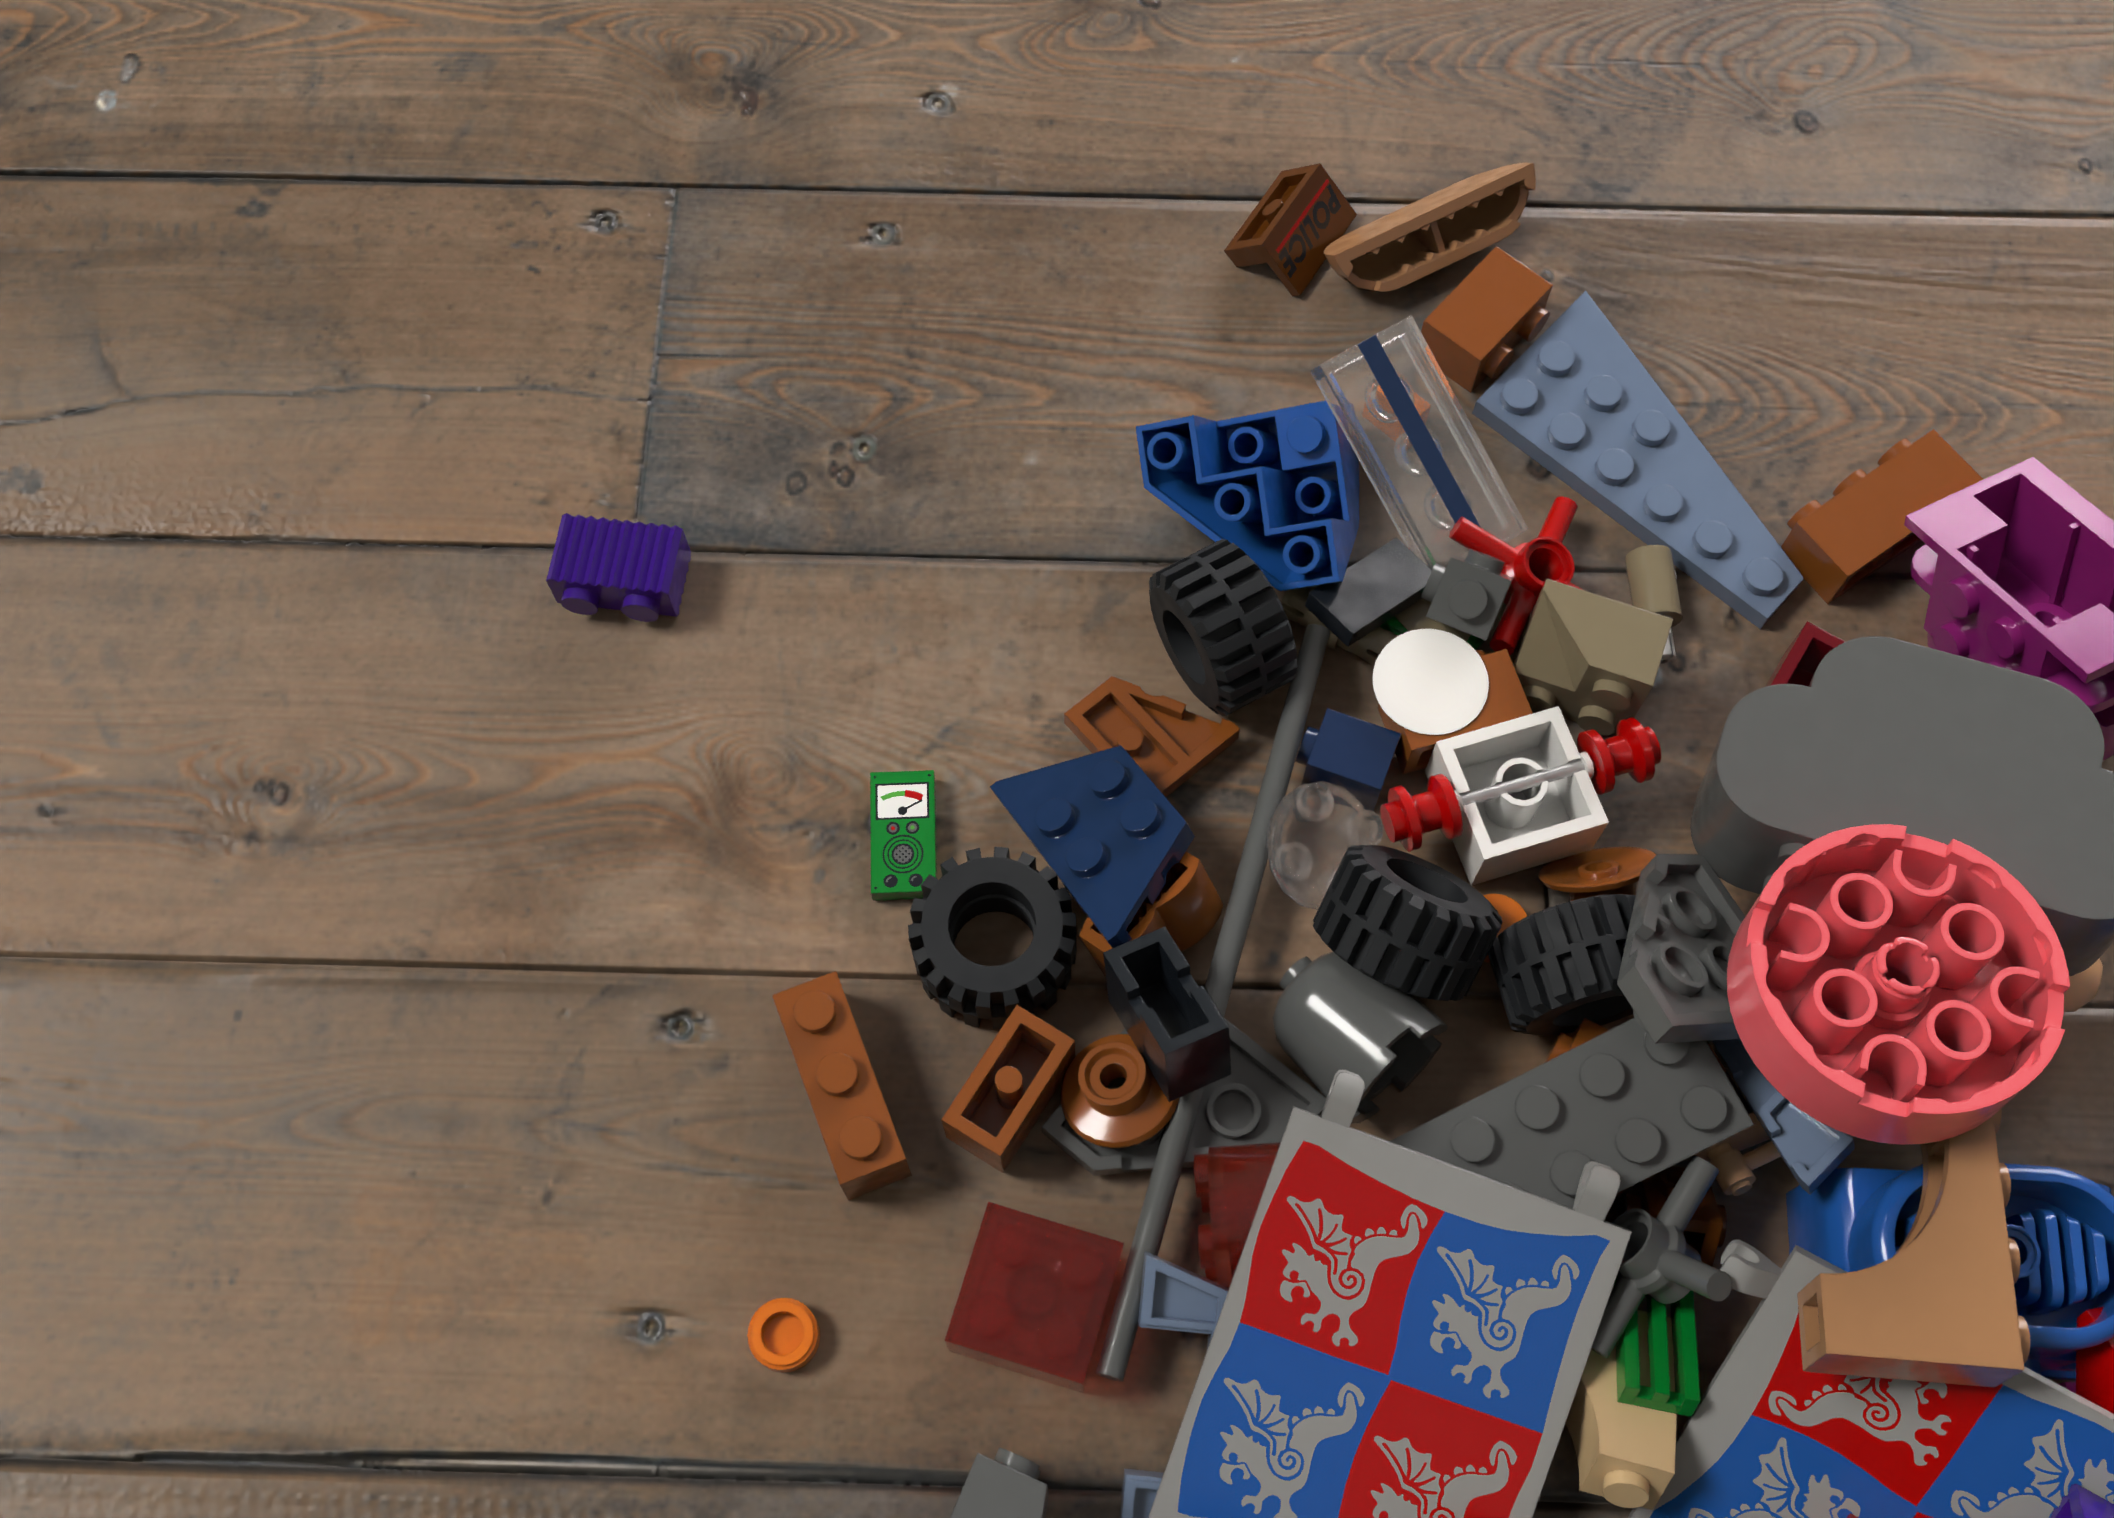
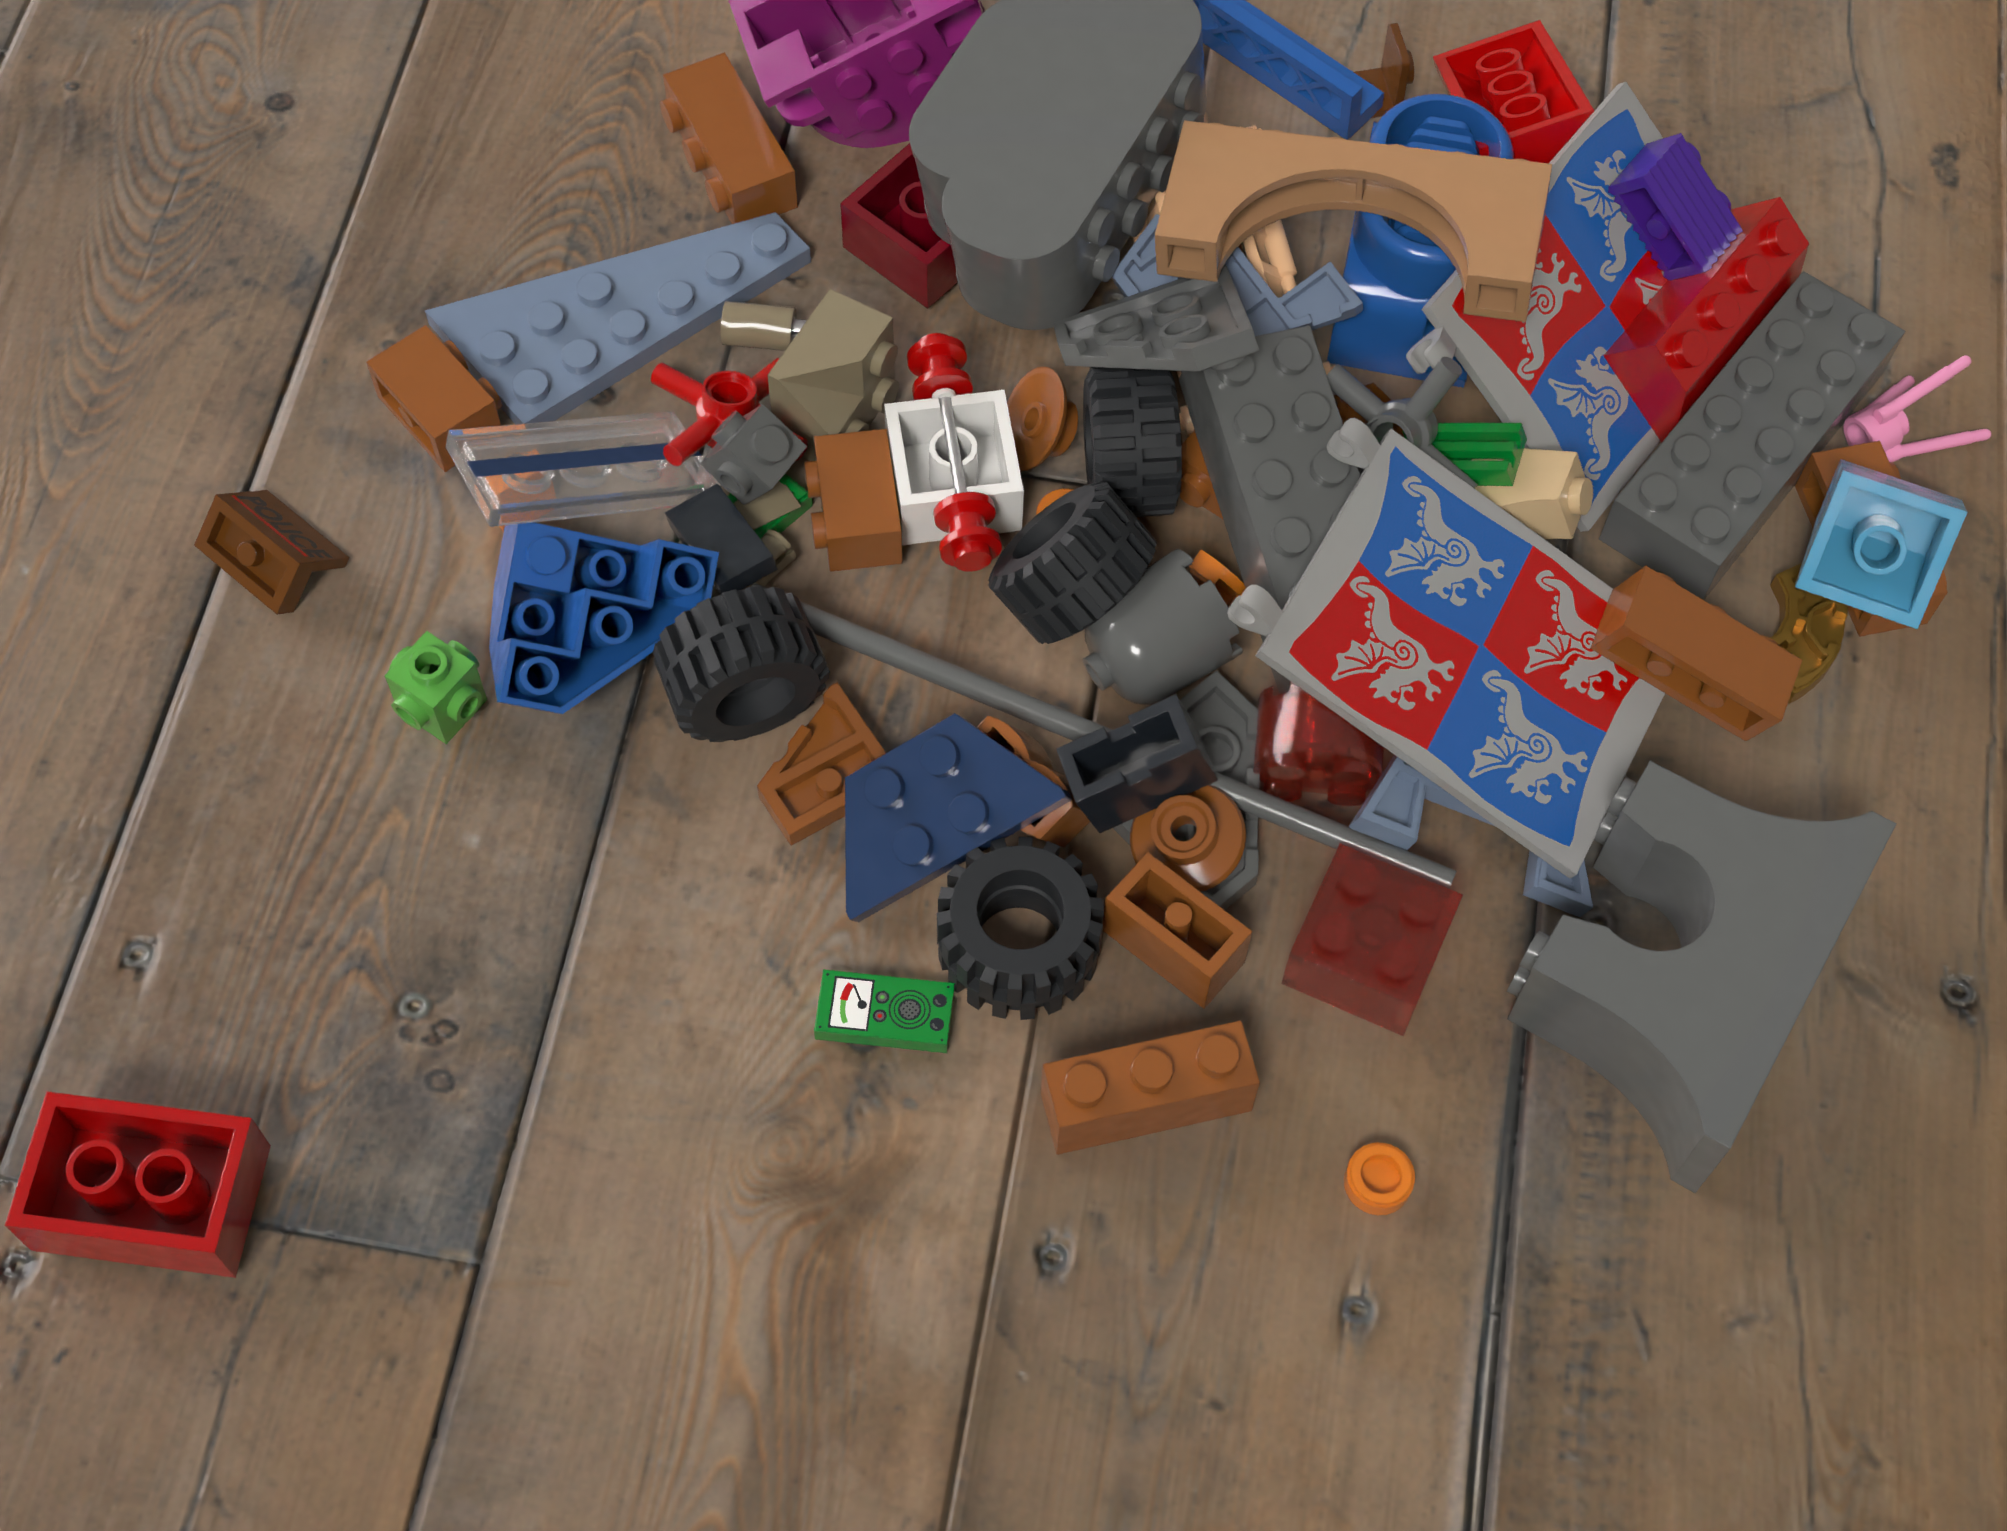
camera: 85 degrees left, 5 degrees down
(619, 567) = (513, 1267): dark purple brick -> none
(657, 275) = (139, 1184): none -> red brick
(1164, 382) = (436, 686): none -> bright green brick
(1312, 835) = (970, 632): clear dish -> none
(1348, 755) = (888, 593): dark blue brick -> none
(1430, 681) = (835, 502): white sticker -> none
(1433, 230) = (314, 421): medium nougat brick -> none
(1452, 1084) = (1208, 568): none -> orange tile
(1966, 1000) = (1246, 164): coral brick -> none

